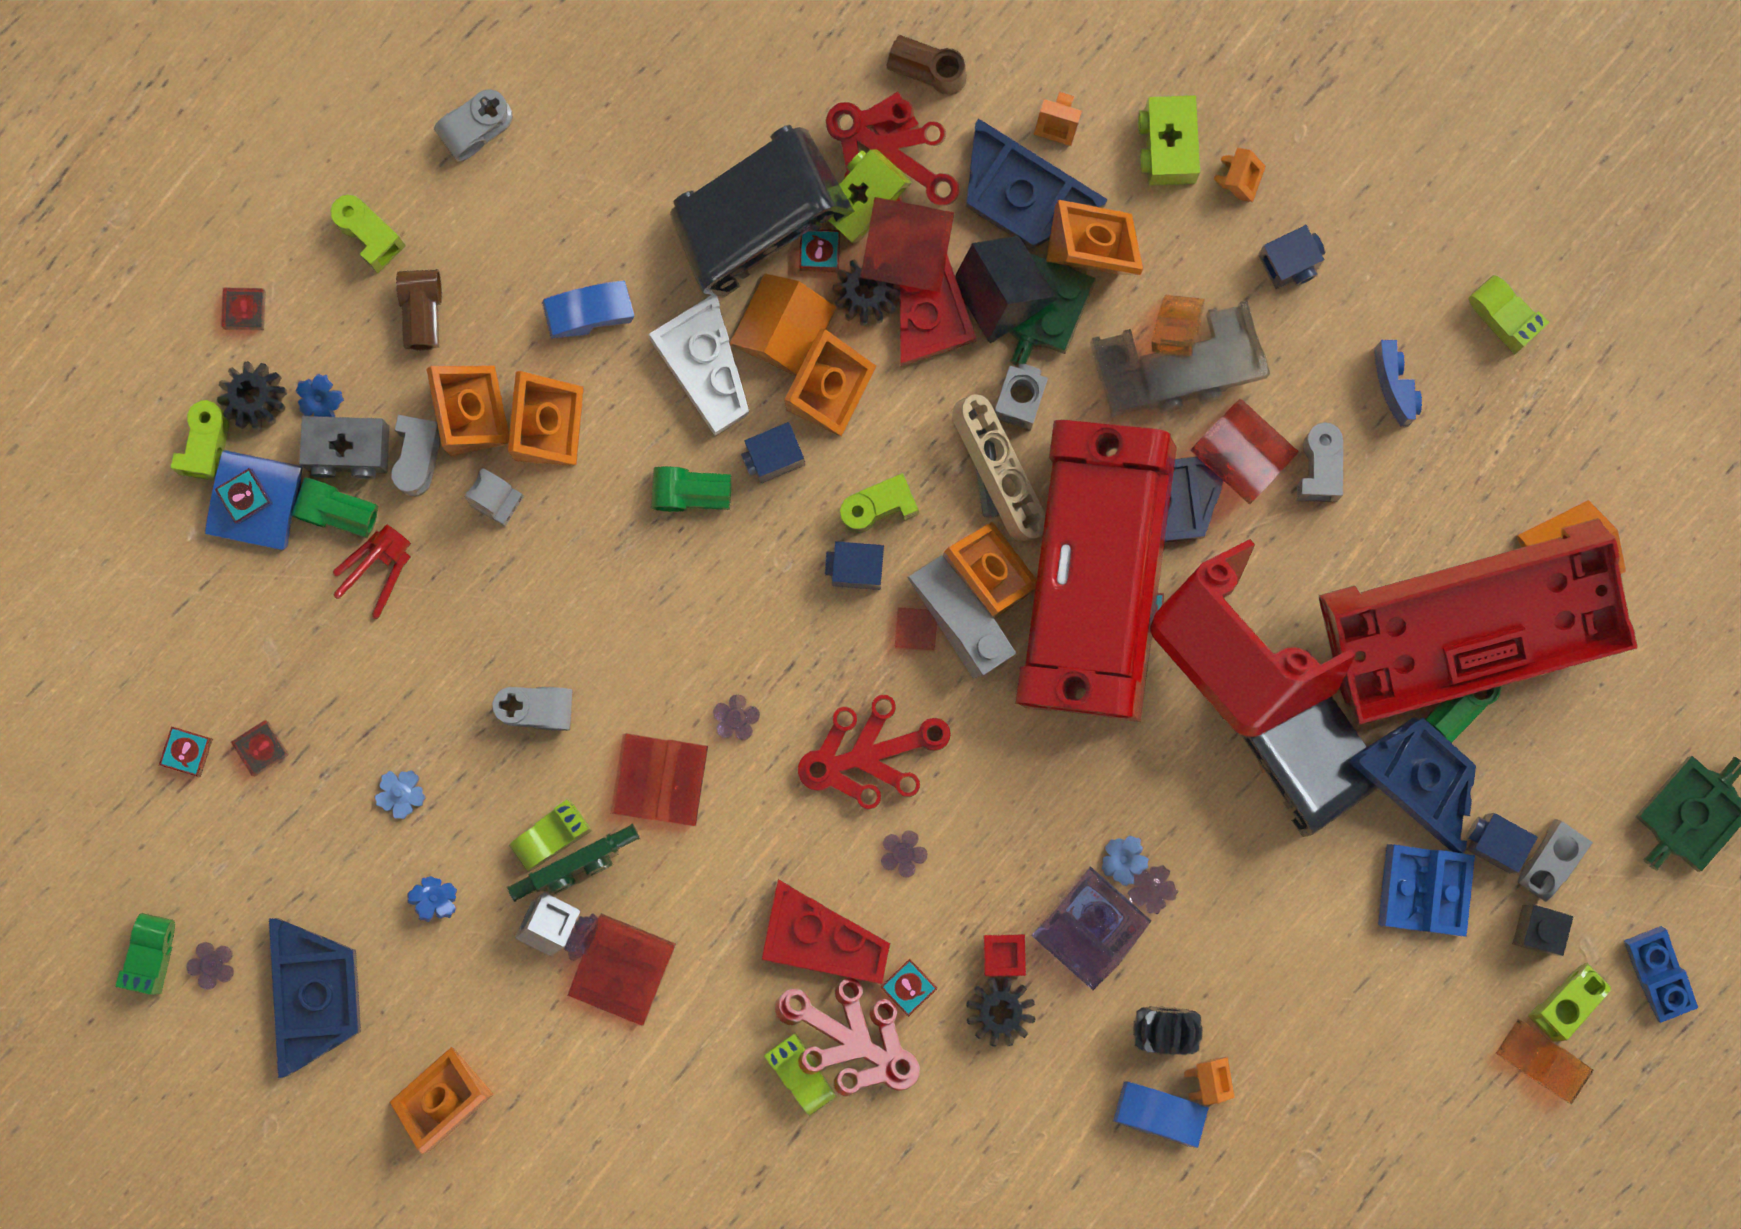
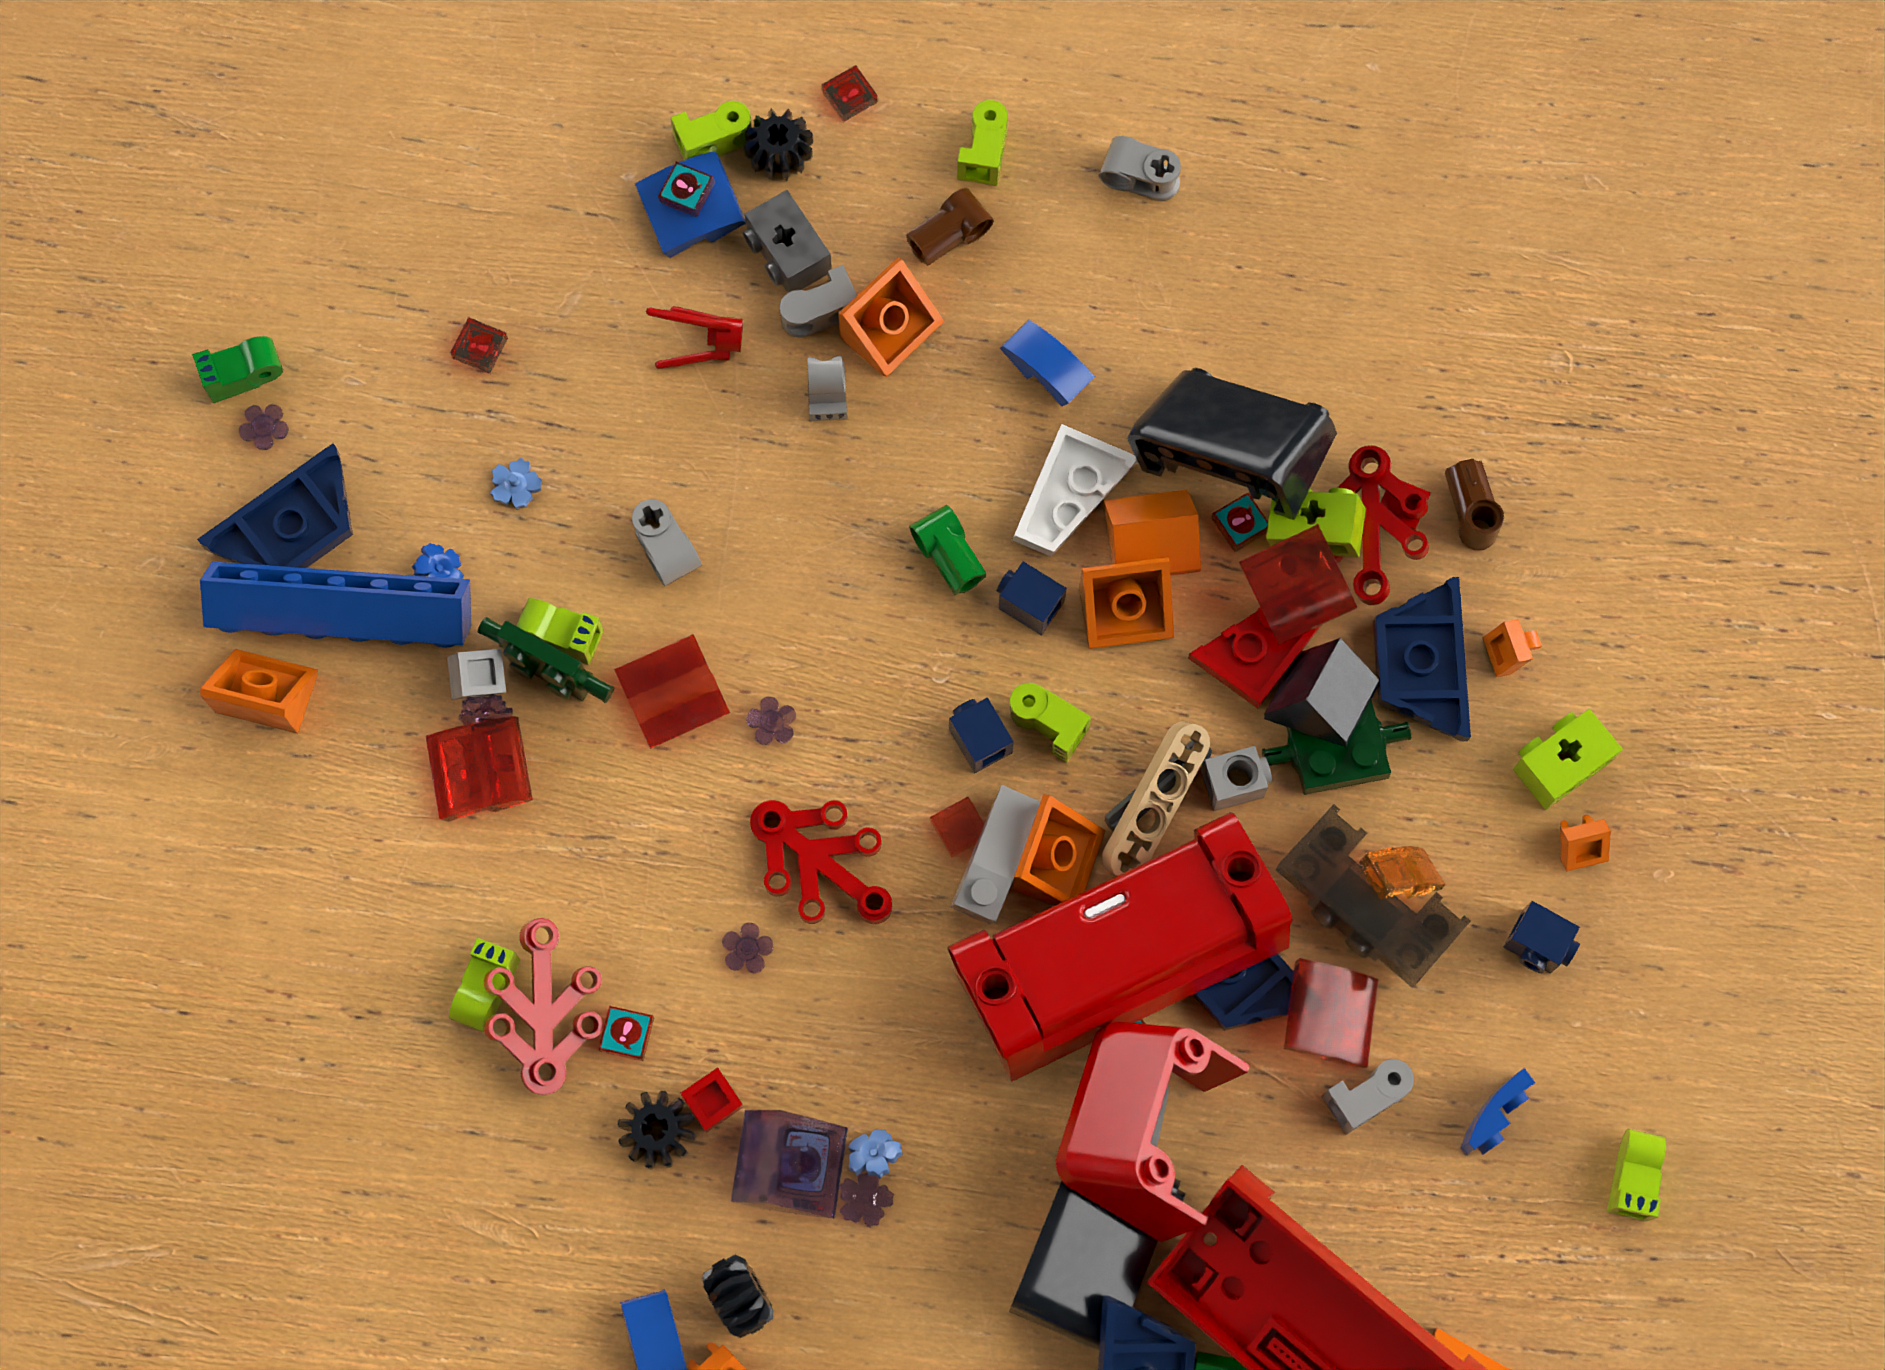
camera: 55 degrees right, 10 degrees down
(185, 752) = (436, 288): tile -> none
(316, 397) = (813, 197): blue plant -> none
(324, 505) = (725, 263): green piece -> none
(411, 999) = (336, 604): none -> blue brick
(545, 420) = (923, 387): orange slope -> none
(820, 940) = (618, 924): red wing -> none
(850, 290) = (1216, 590): black gear -> none
(1094, 239) = (1425, 746): orange slope -> none

